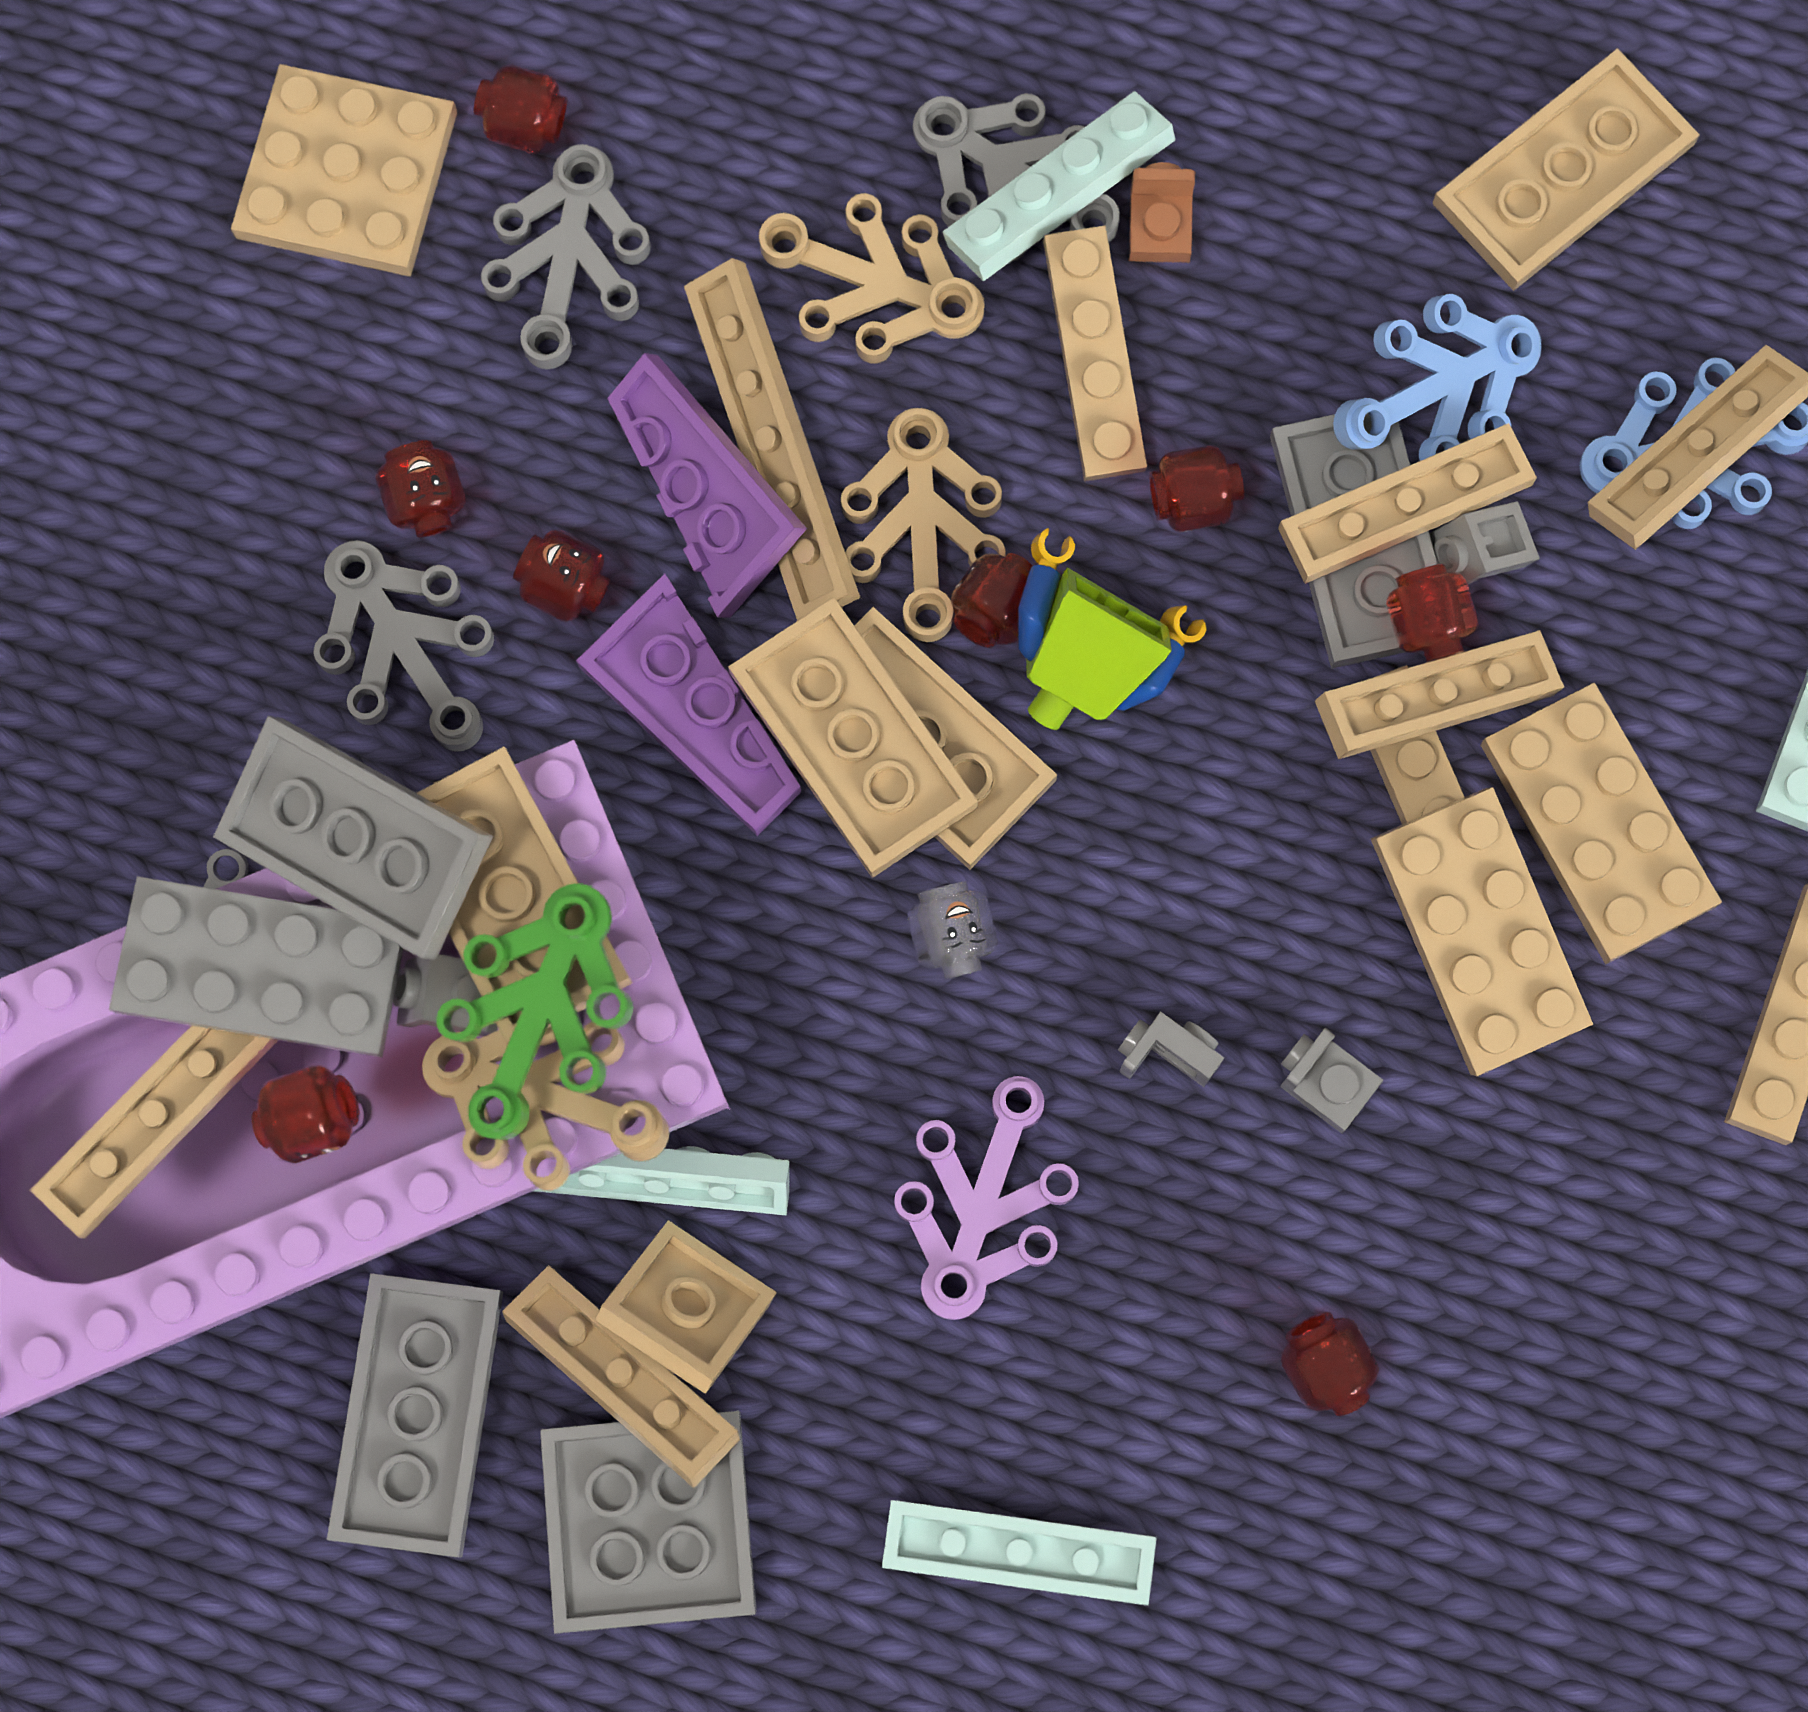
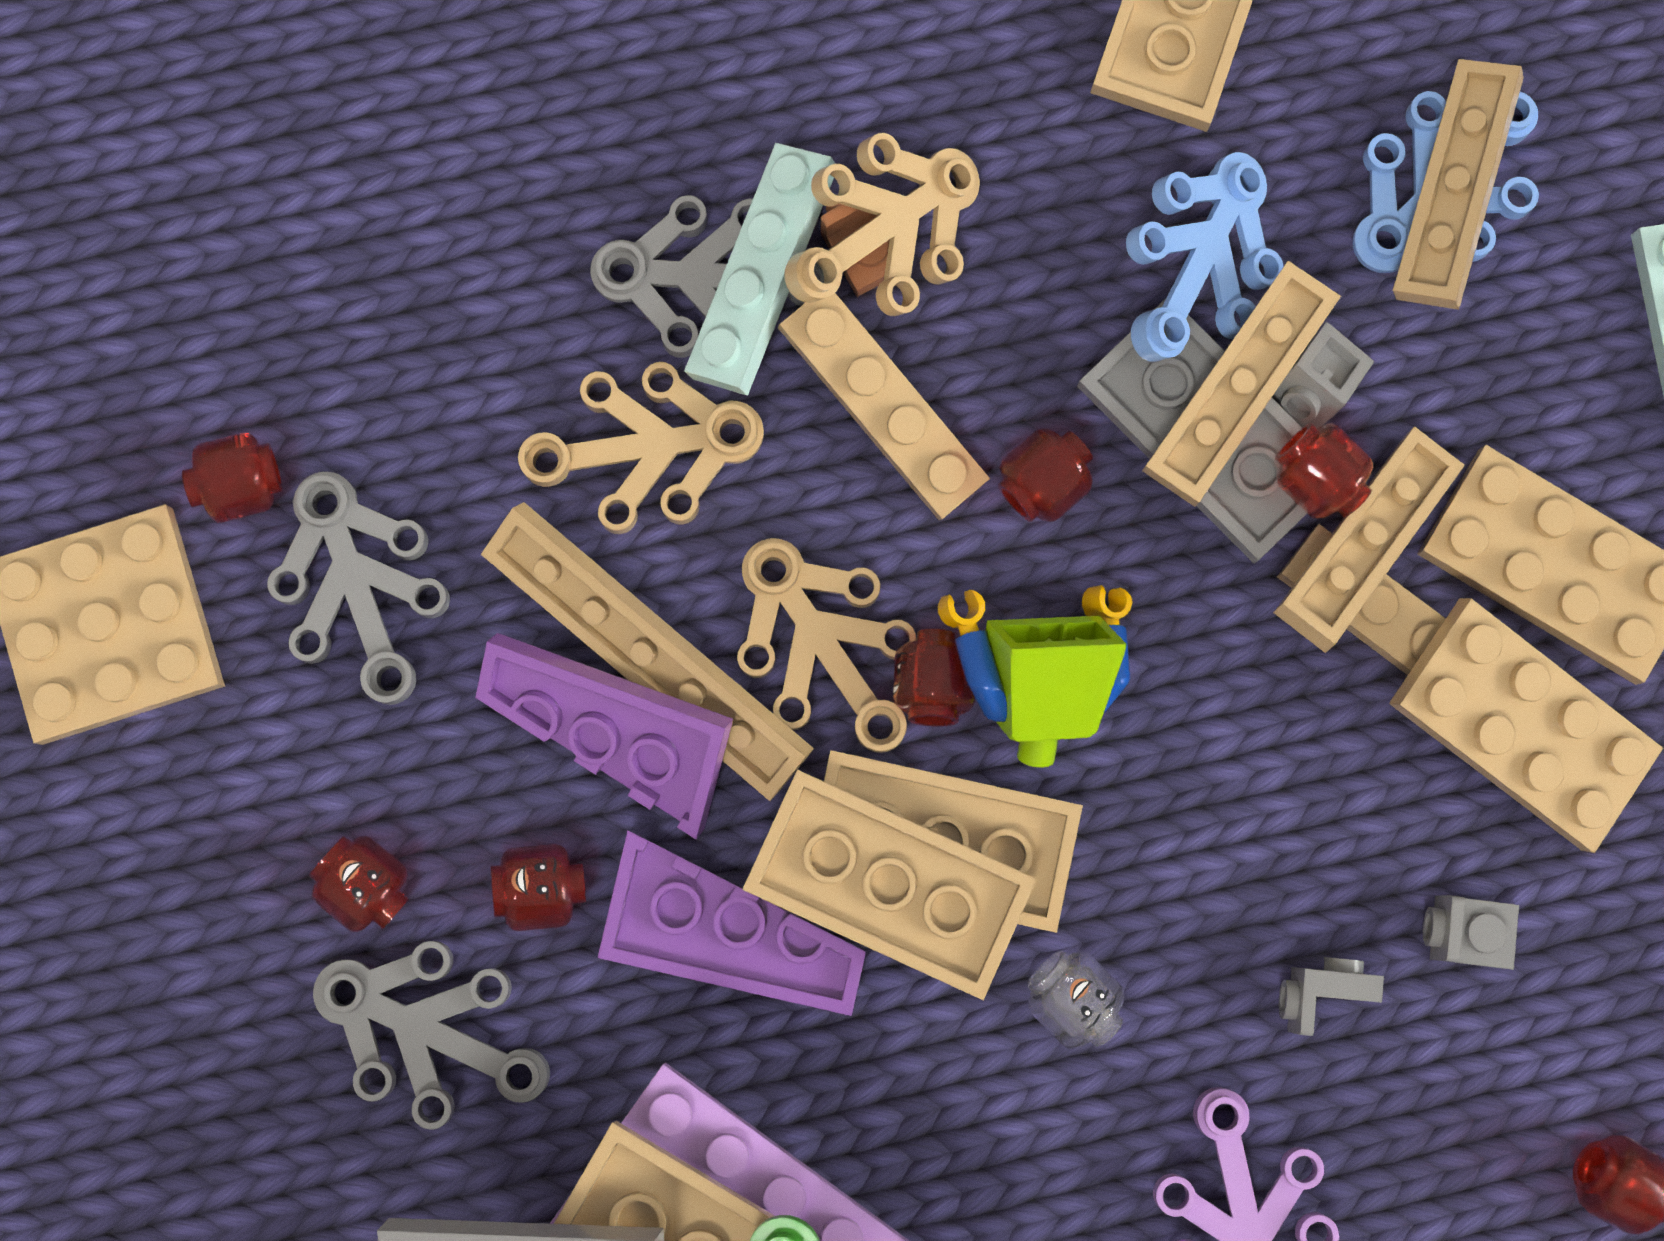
camera: 35 degrees left, 5 degrees up
(1196, 205) = (895, 220): none -> tan plant

